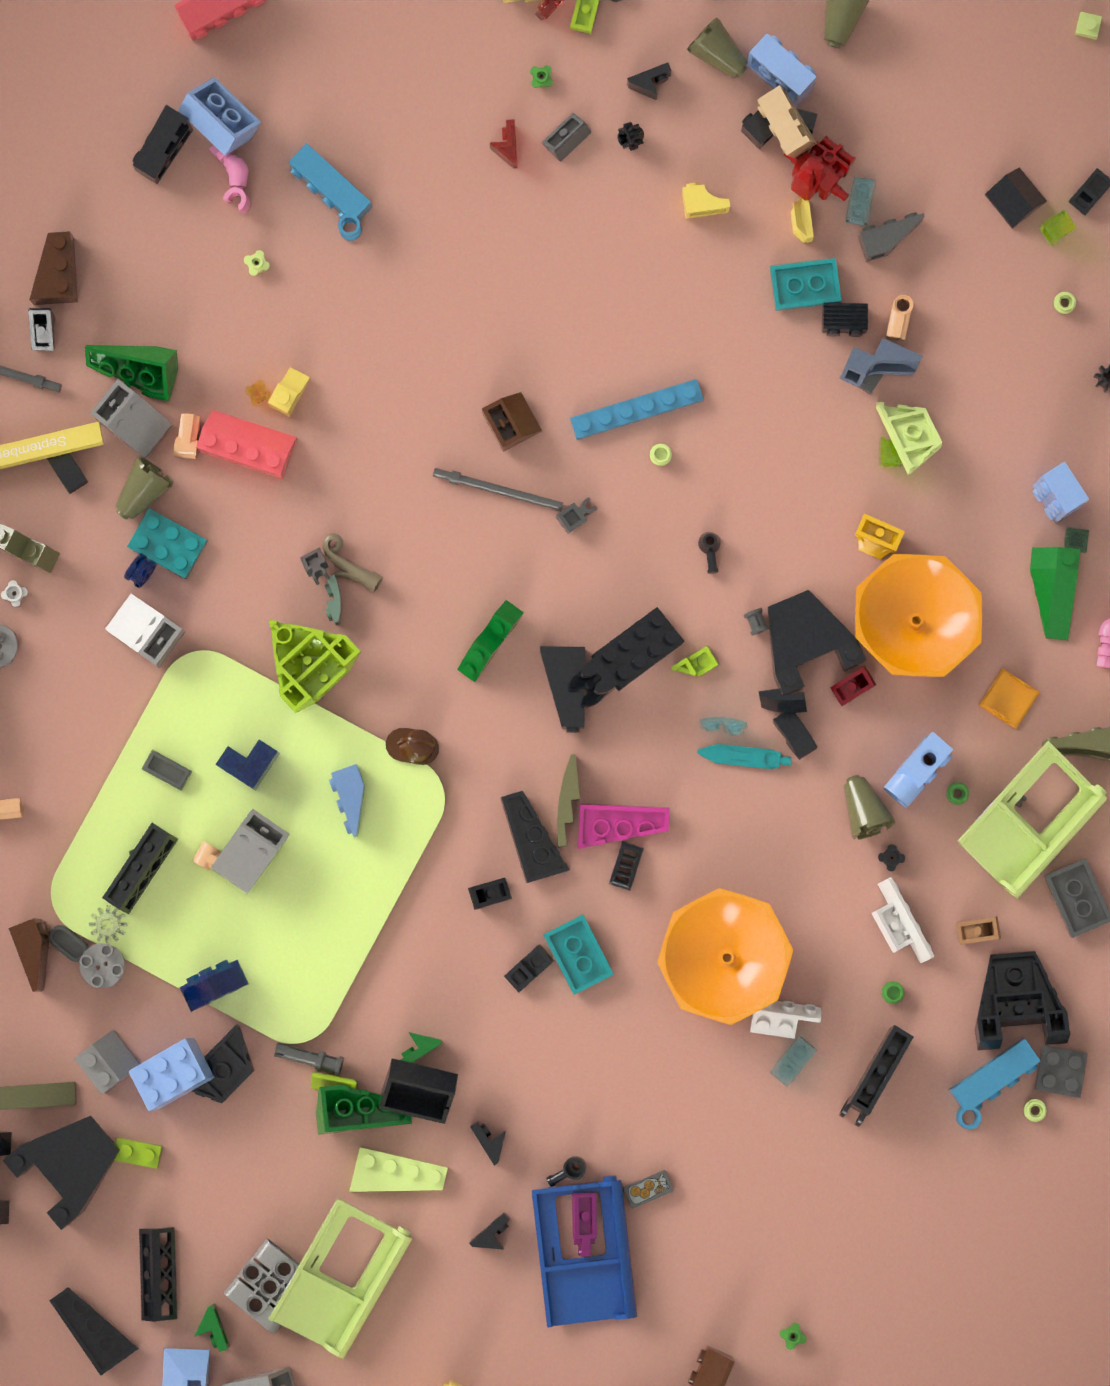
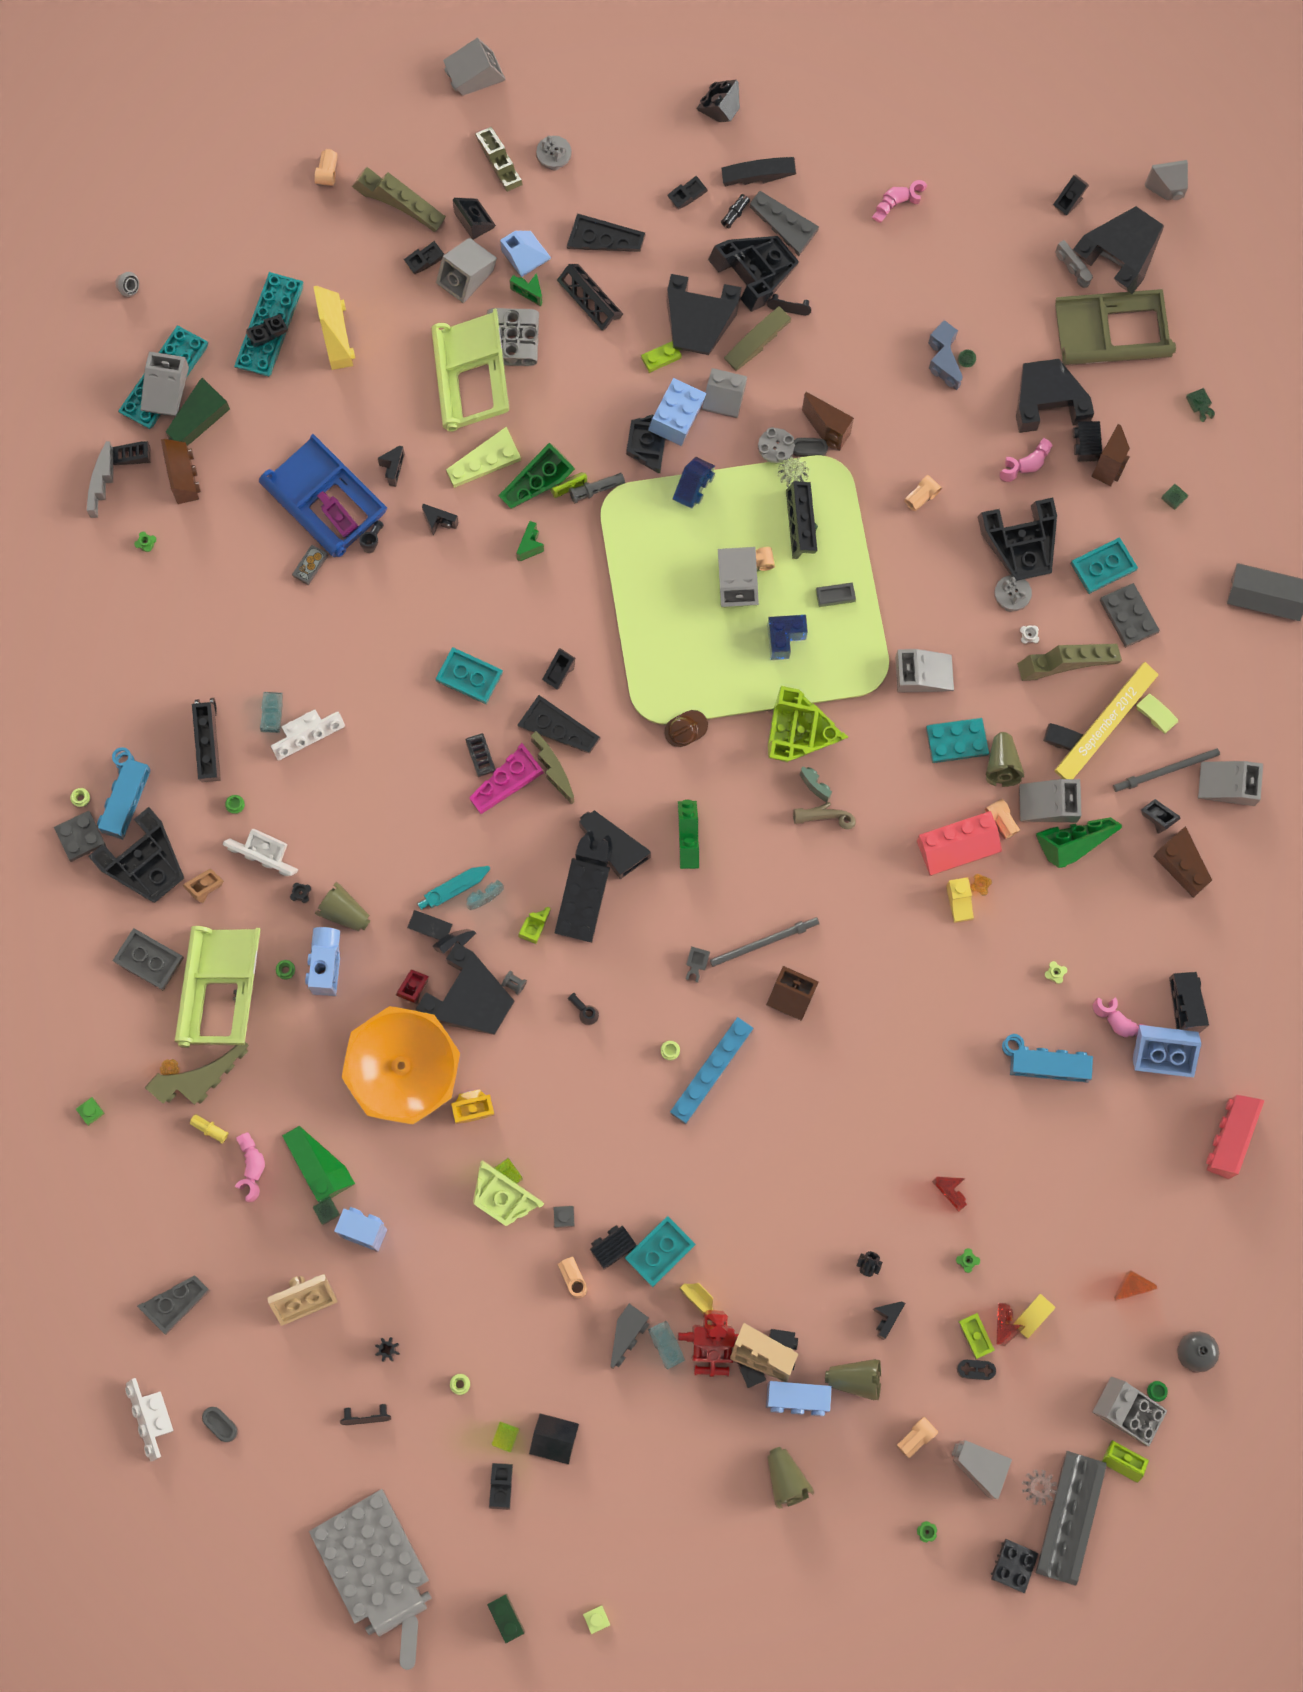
camera: 140 degrees right, 10 degrees down
(140, 570) = (960, 706): clear blue wheel -> none
(315, 564) = (847, 796): dark grey plate -> none
(351, 790) = (704, 667): medium blue slope -> none
(418, 1091) = (508, 511): black piece -> none
(529, 968) = (496, 644): black slope -> none
(566, 137) = (914, 1230): dark grey slope -> none
(701, 203) = (783, 1253): light yellow arch -> none
(725, 956) = (366, 738): light orange piece -> none
(888, 359) = (559, 1239): sand blue arch -> none
(1009, 698) = (295, 1063): light orange piece -> none

